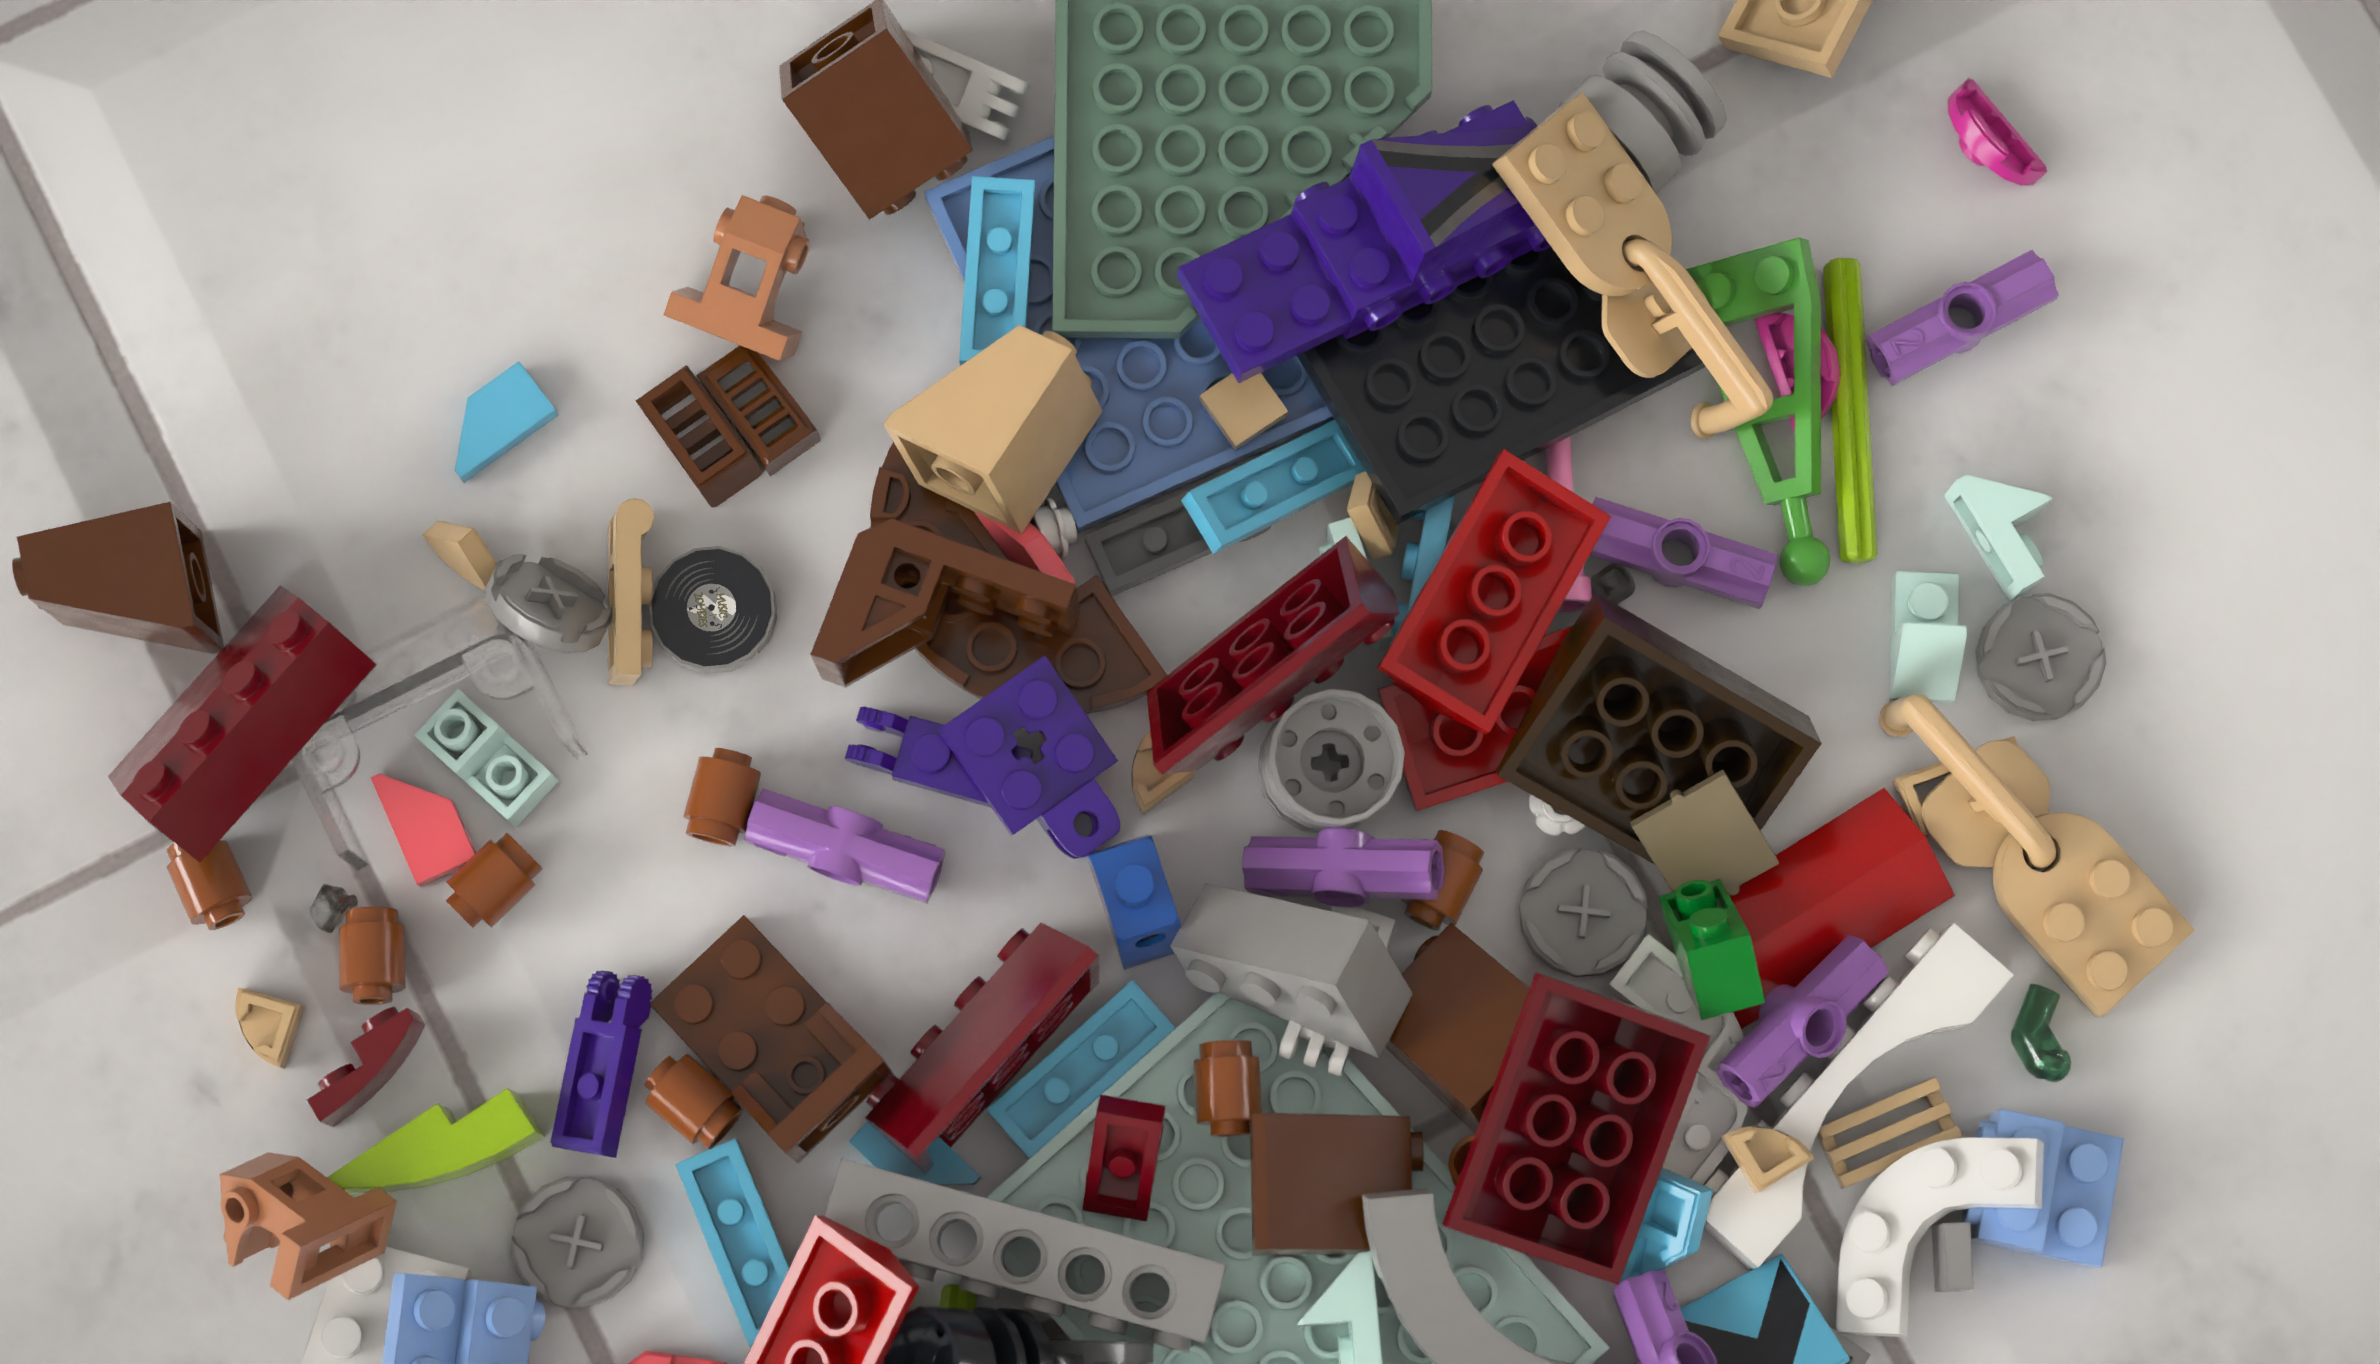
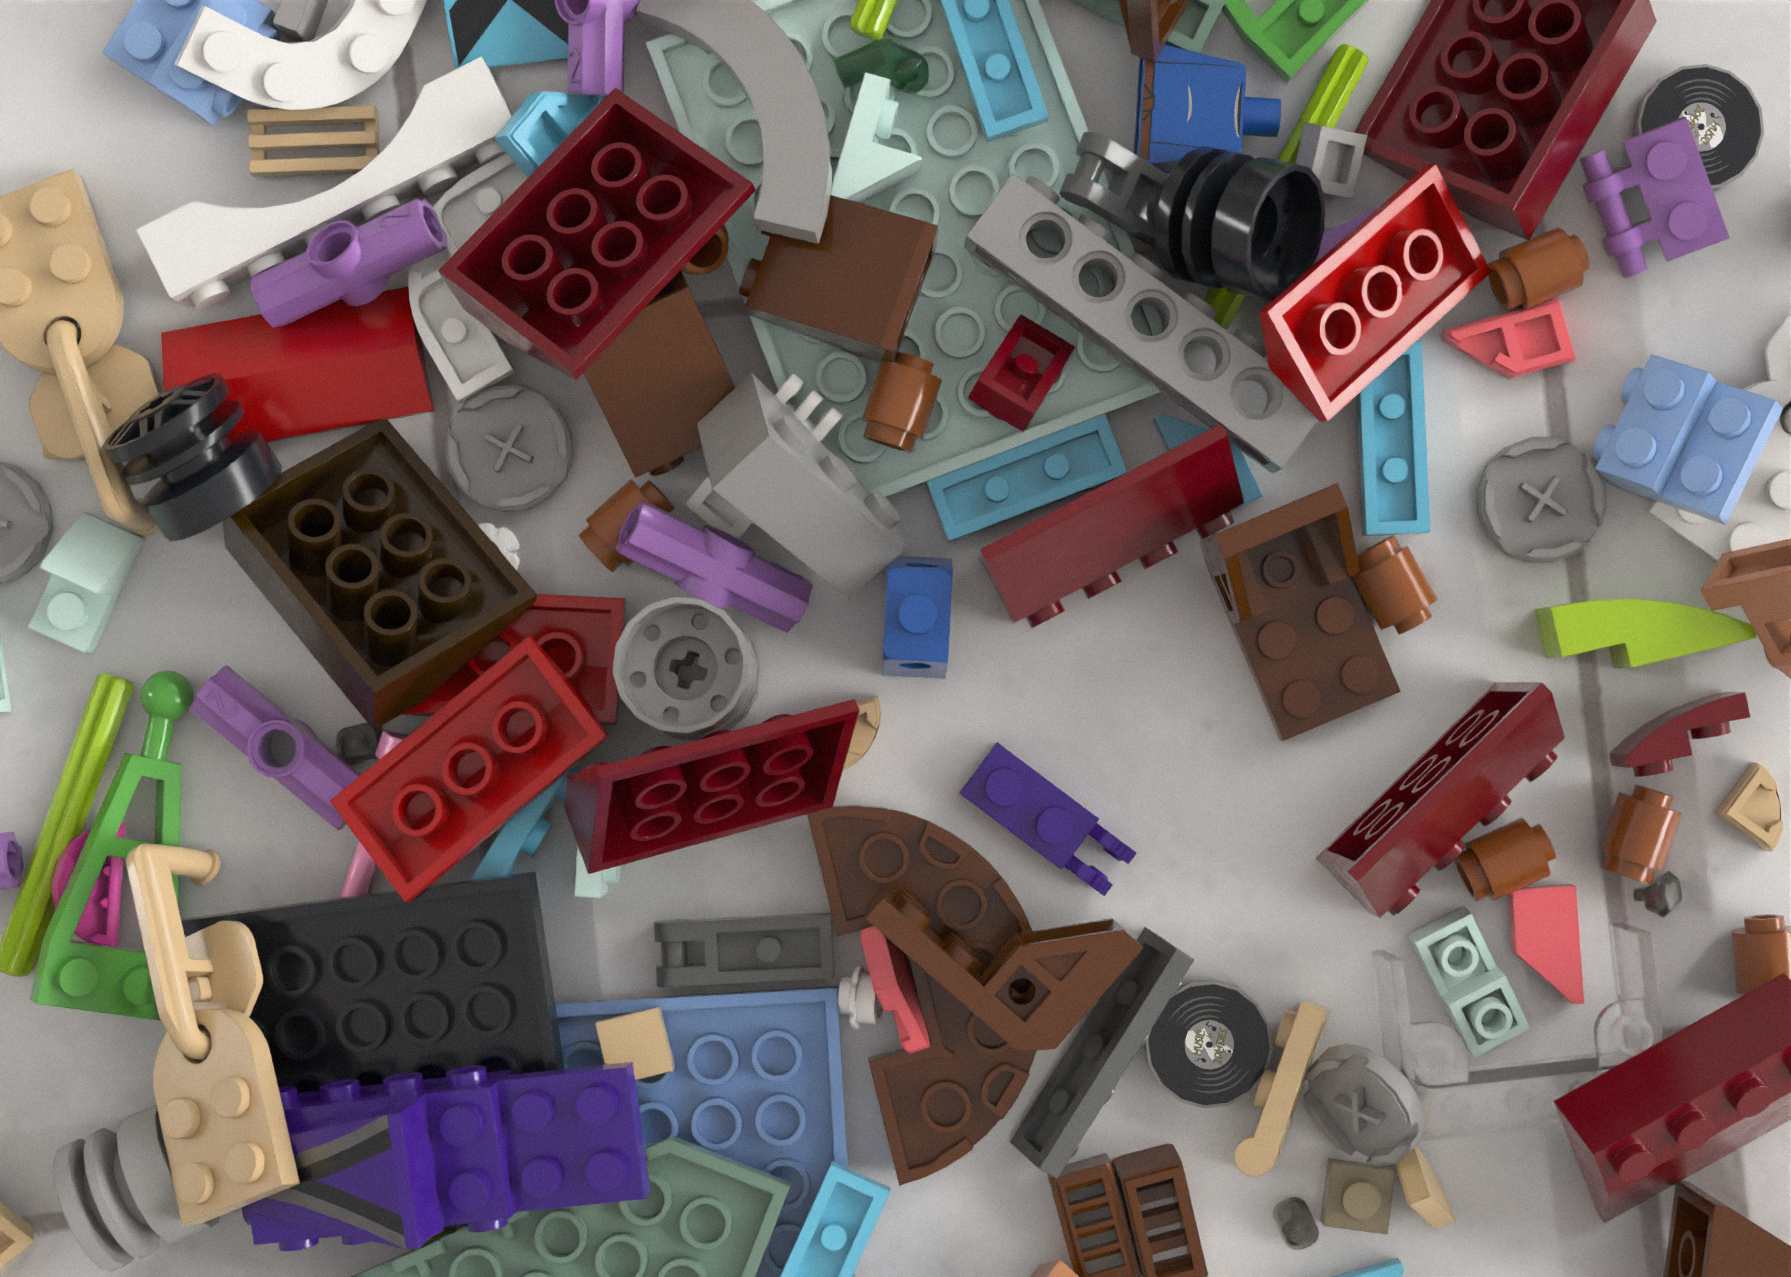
camera: 155 degrees left, 10 degrees up
(521, 522) = (1357, 1196): none -> dark tan plate
(570, 477) = (1295, 1223): none -> clear smoke rock
(576, 911) = (1445, 795): none -> dark red slope
(601, 1064) = (1464, 650): dark purple hinge -> none
(721, 797) = (1265, 858): dark orange brick -> none
(809, 561) = (1101, 1054): none -> dark grey plate
(844, 845) = (1167, 769): medium lavender piece -> none
(999, 426) = (875, 1109): tan slope -> none
(1044, 790) = (952, 747): dark purple plate -> none
(1272, 487) = (638, 955): medium azure plate -> none
(1372, 518) = (556, 889): tan tile -> none
(1705, 836) = (370, 463): dark tan piece -> none
(1712, 948) = (403, 358): green slope -> none
(1765, 1154) = (432, 151): tan tile -> none
(1867, 780) = (199, 467): none -> black wheel
(2035, 1040) = (144, 173): clear green arm -> none

